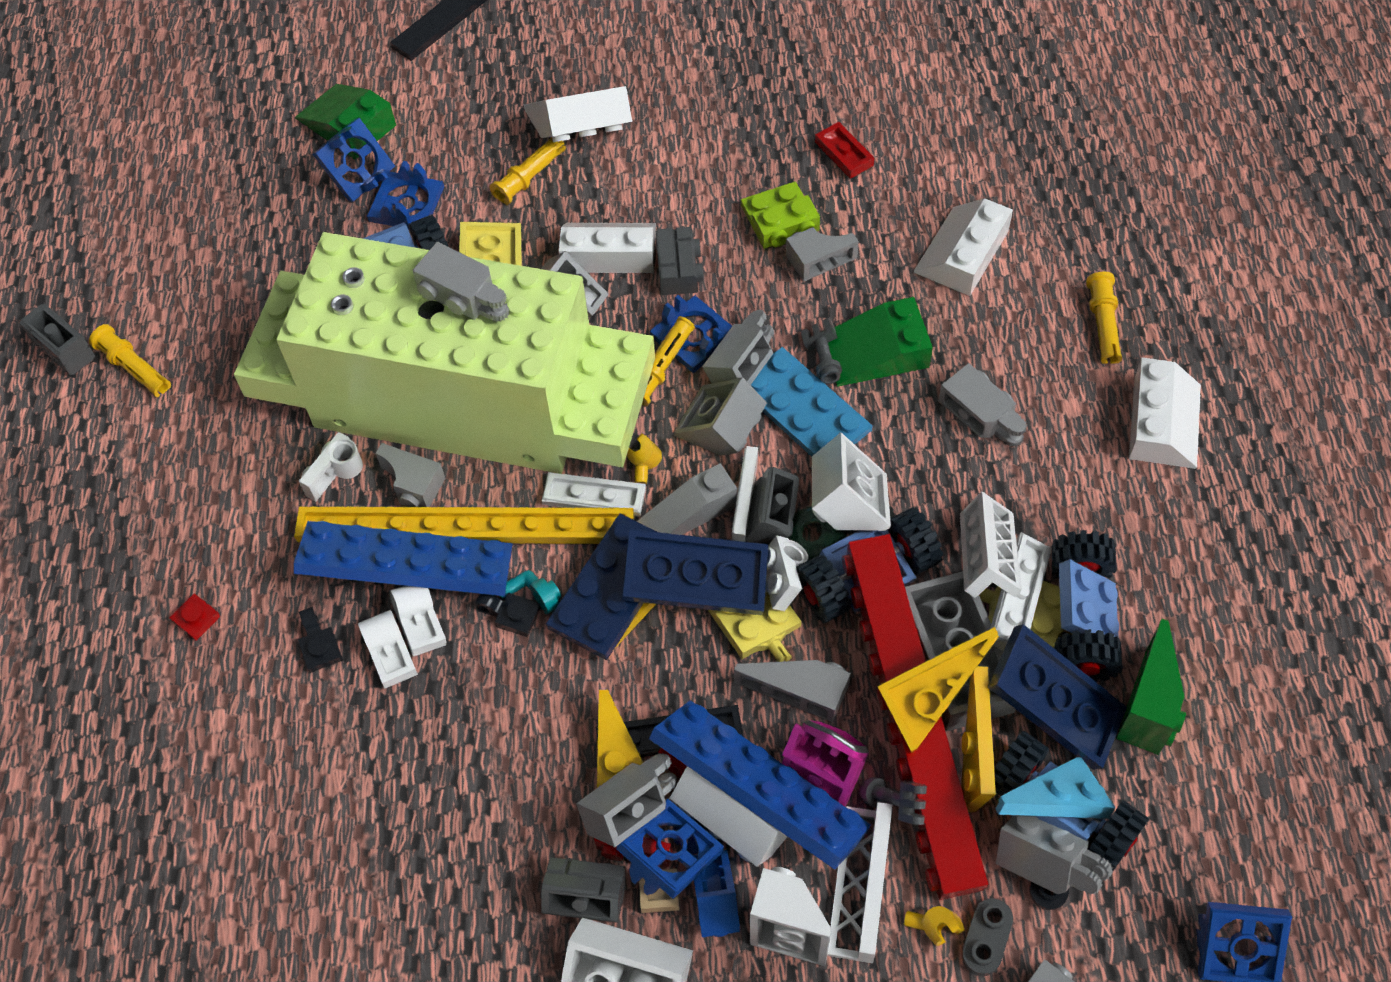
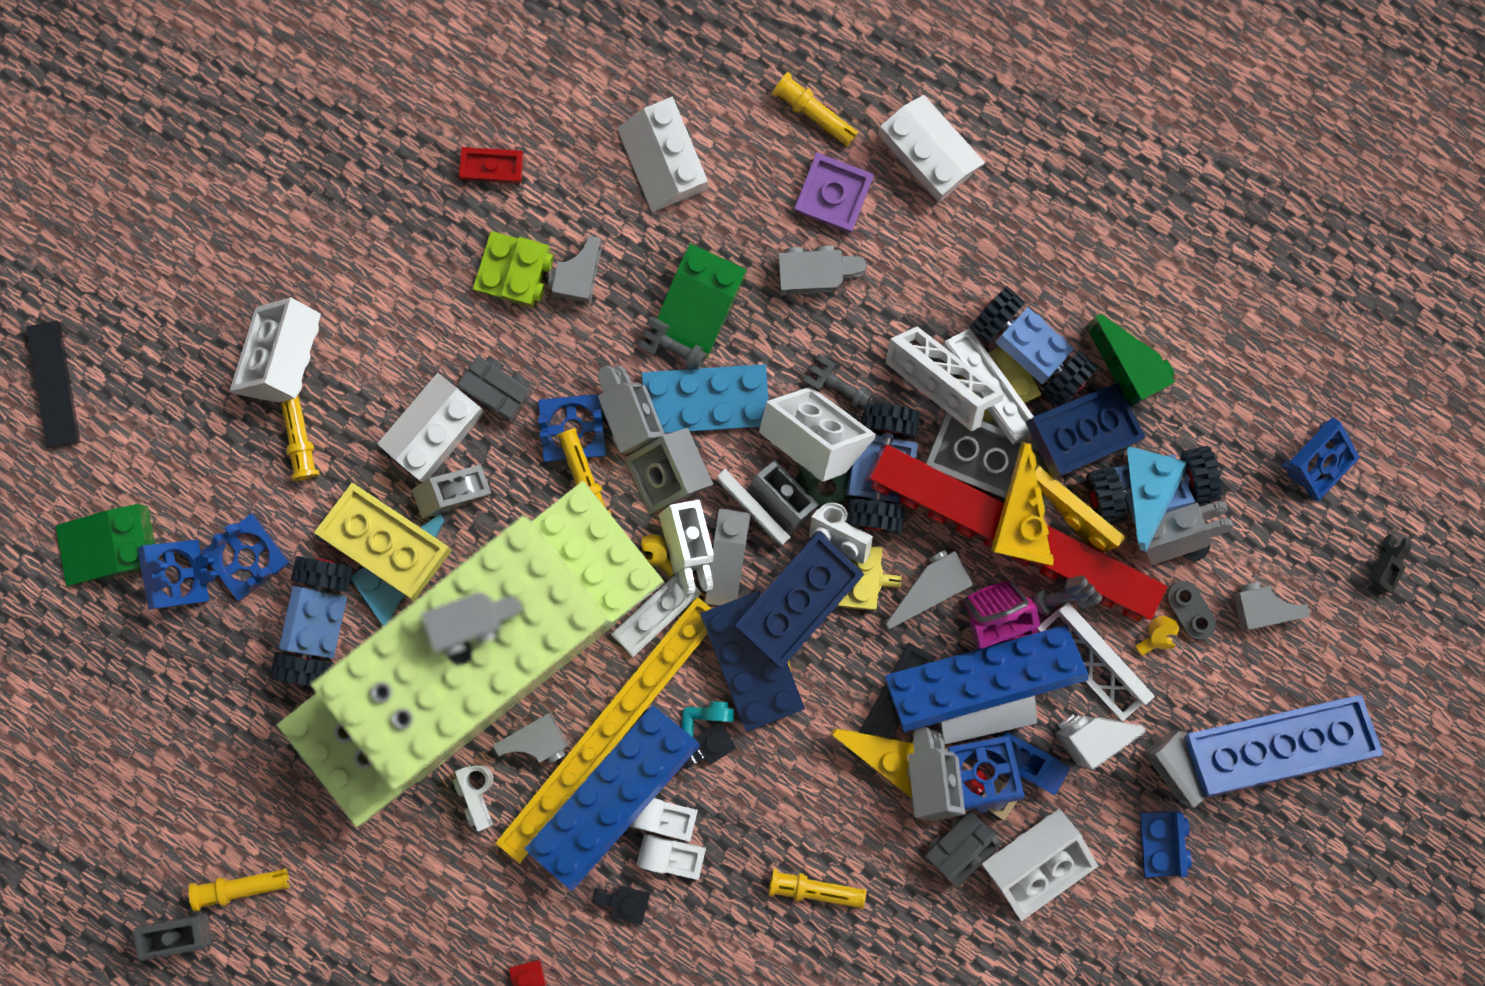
camera: 55 degrees left, 25 degrees up
(439, 777) = (800, 887): none -> yellow pin
(672, 465) = (688, 544): none -> white hinge
(905, 479) = (858, 396): none -> dark grey hinge
(1056, 375) = (833, 193): none -> medium lavender plate

